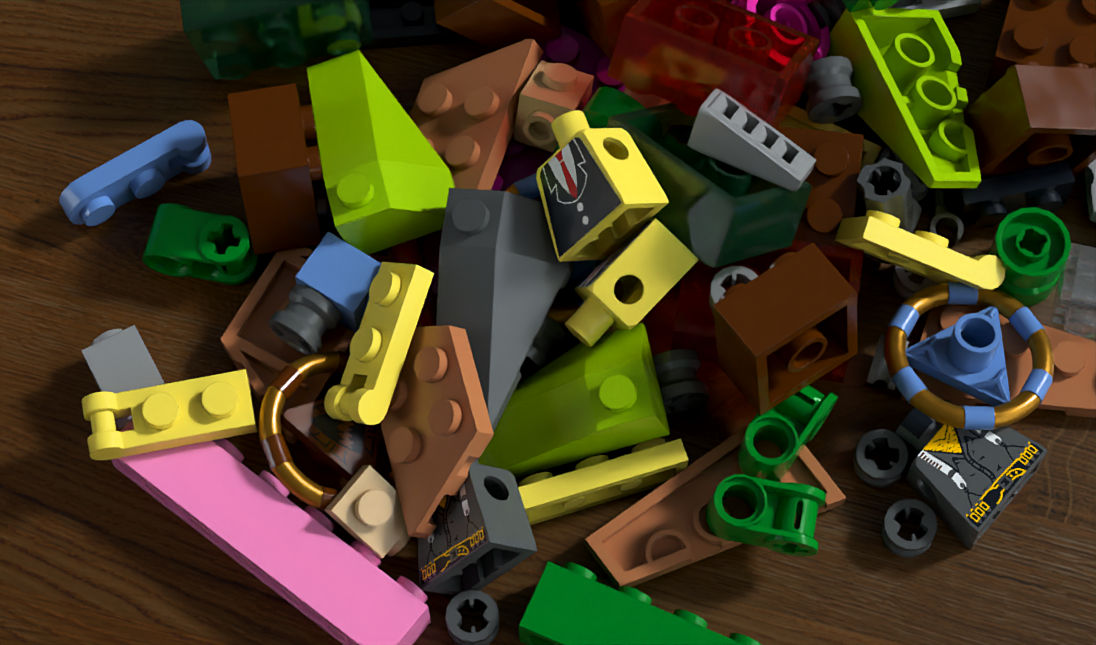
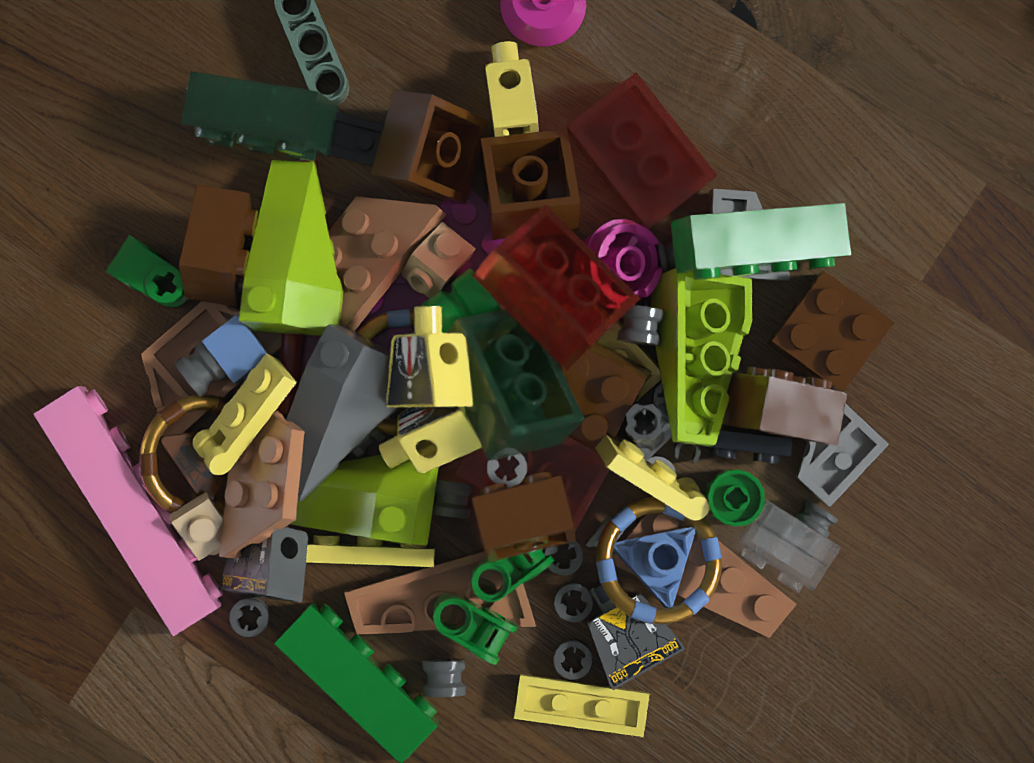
camera: 15 degrees right, 20 degrees up
(121, 363) = (66, 355): light grey brick -> none
(136, 173) = (123, 202): medium blue plate -> none
(170, 415) = (85, 409): light yellow plate -> none
(745, 141) = (543, 351): light grey slope -> none
(754, 602) = (444, 677): none -> dark grey wheel
(854, 389) = (574, 563): none -> dark grey bush
(944, 578) = (581, 705): none -> light yellow plate

